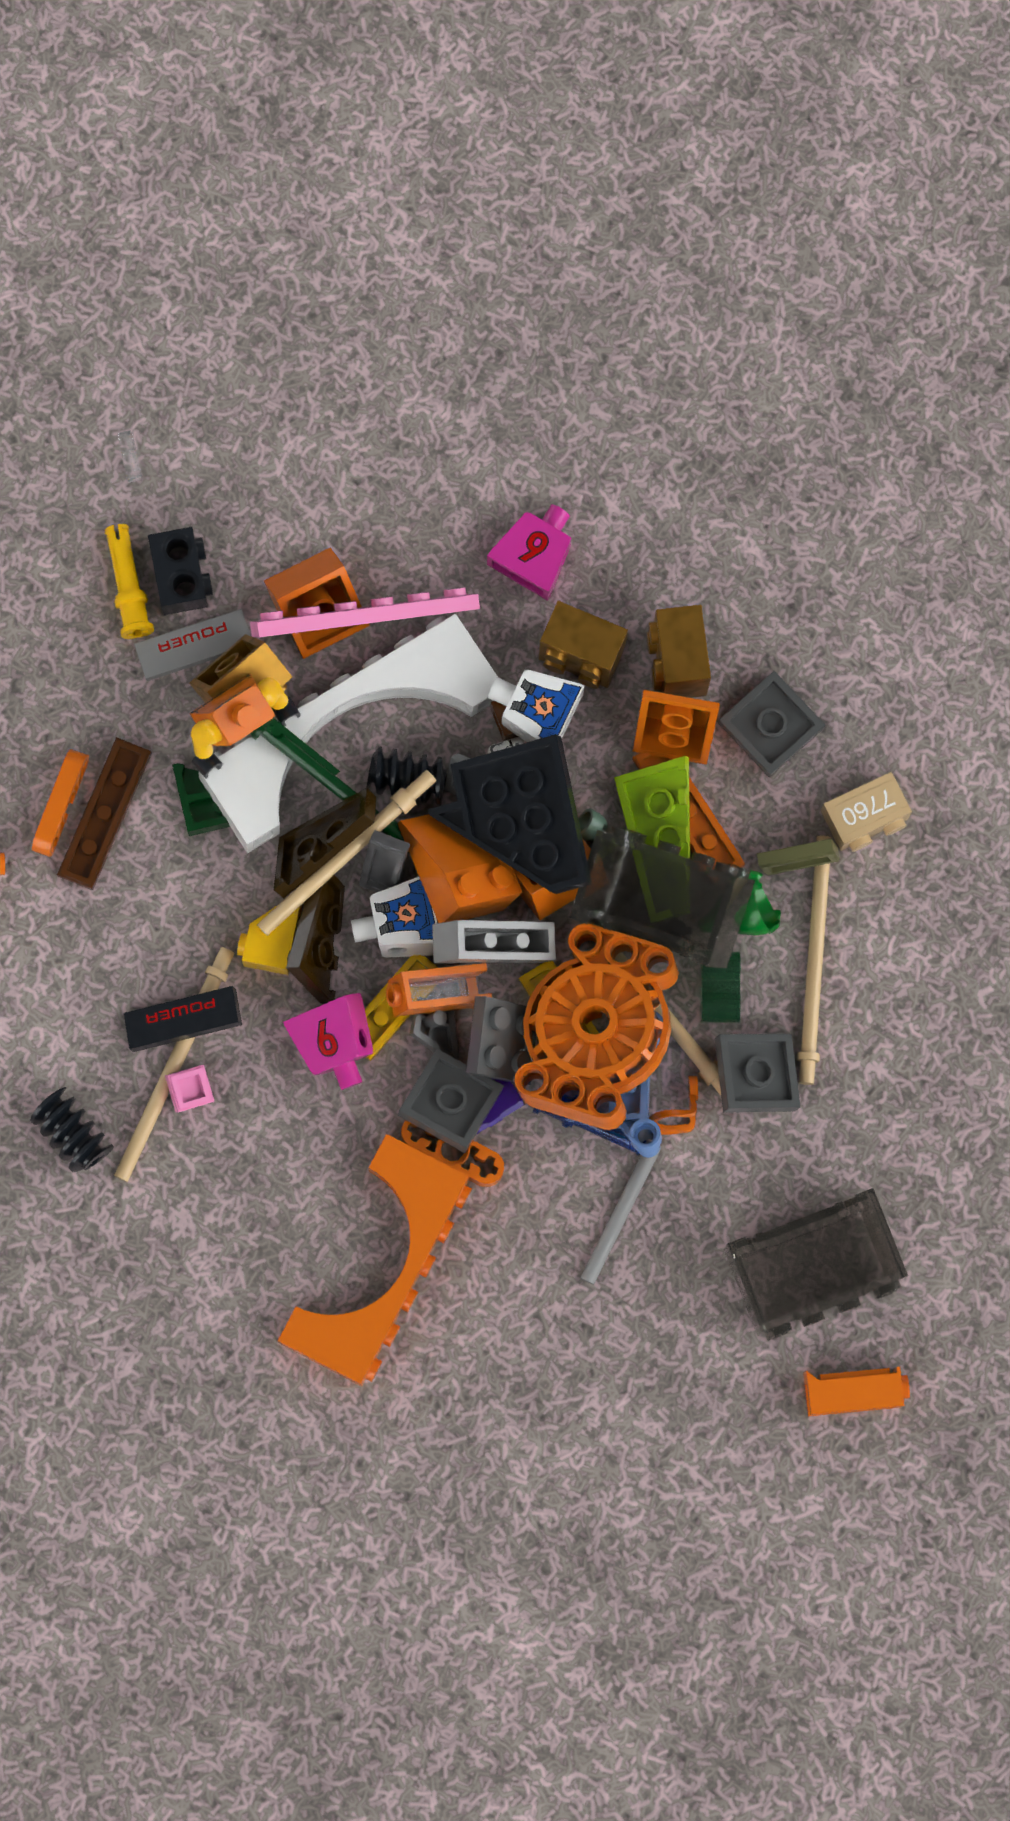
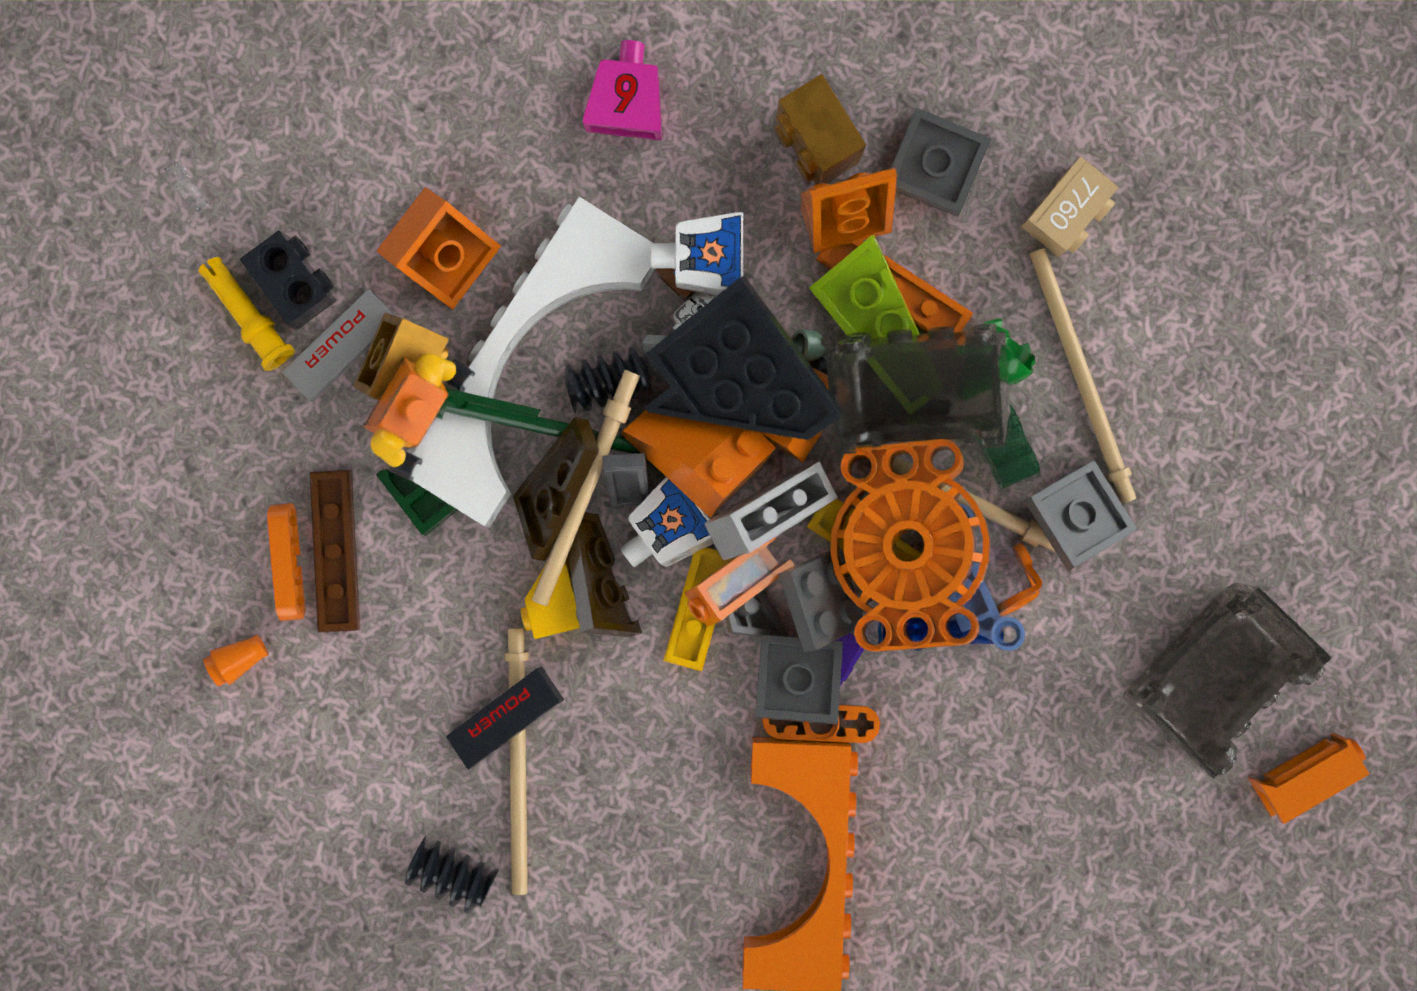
camera: 20 degrees left, 10 degrees up
(189, 1088) = (543, 779): bright pink tile -> none
(333, 1038) = (658, 672): dark pink torso -> none
(348, 614) = (475, 247): bright pink plate -> none
(582, 645) = (719, 170): pearl gold brick -> none
(618, 1218) = (1007, 709): light grey bar -> none
(798, 857) = (1025, 284): olive tile -> none

